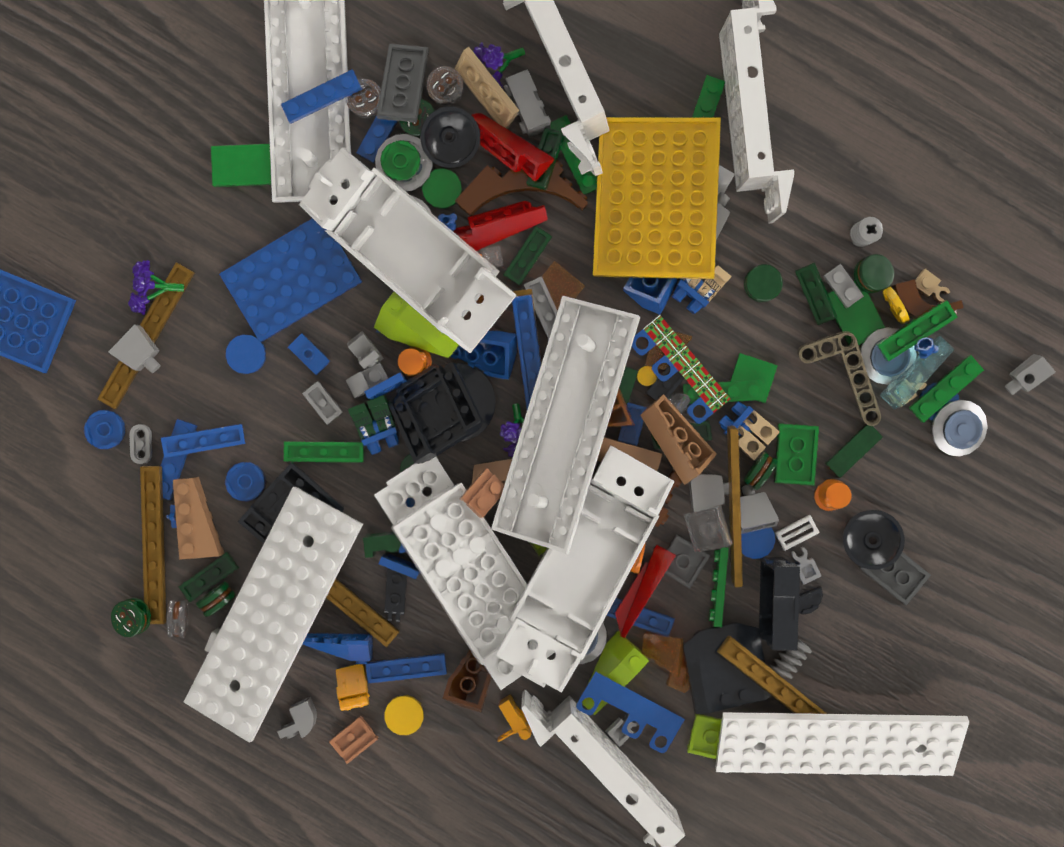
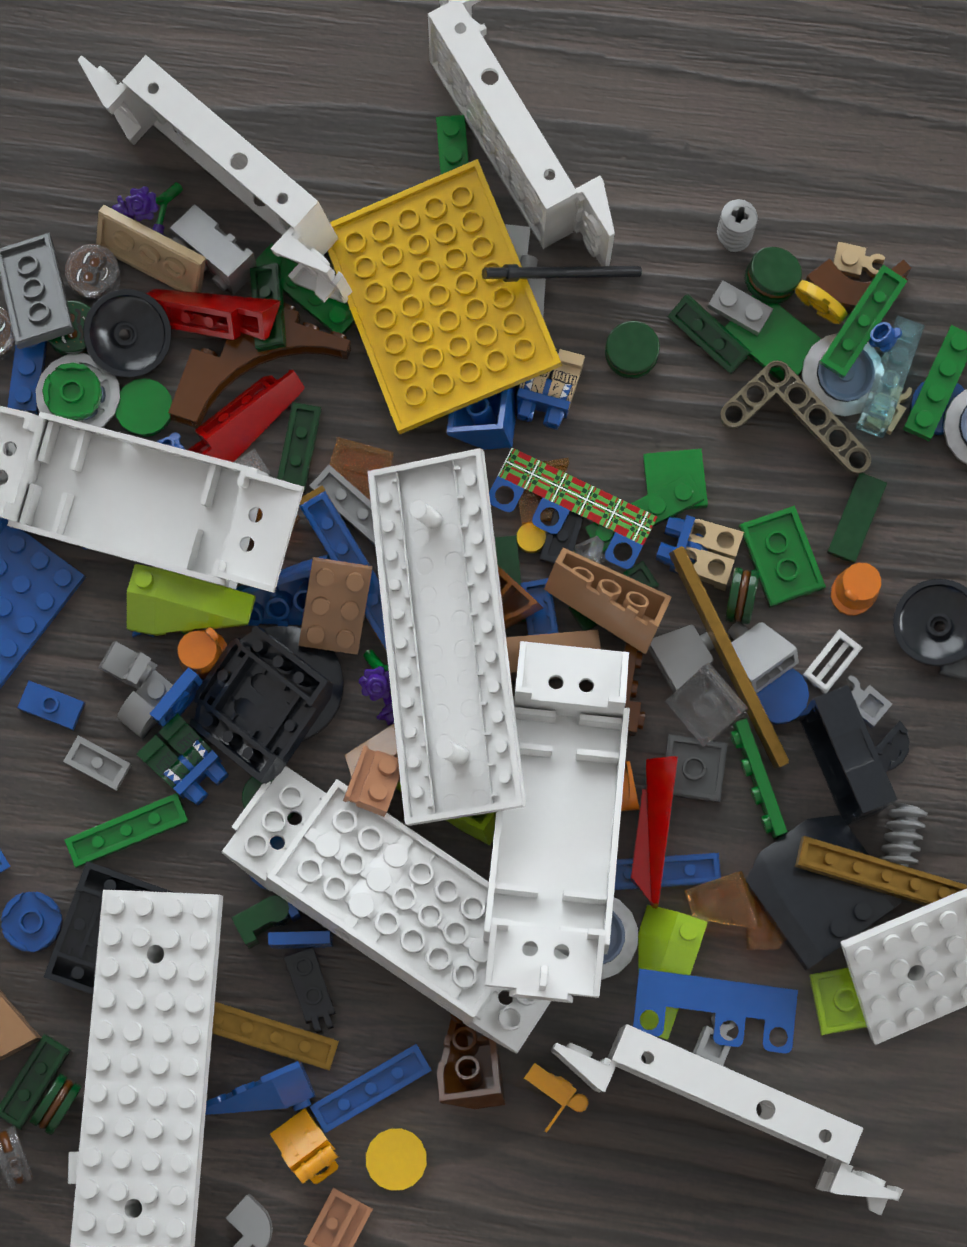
camera: 25 degrees left, 10 degrees down
(507, 370) = (335, 605): none -> medium nougat plate
(710, 206) = (513, 272): none -> black bar

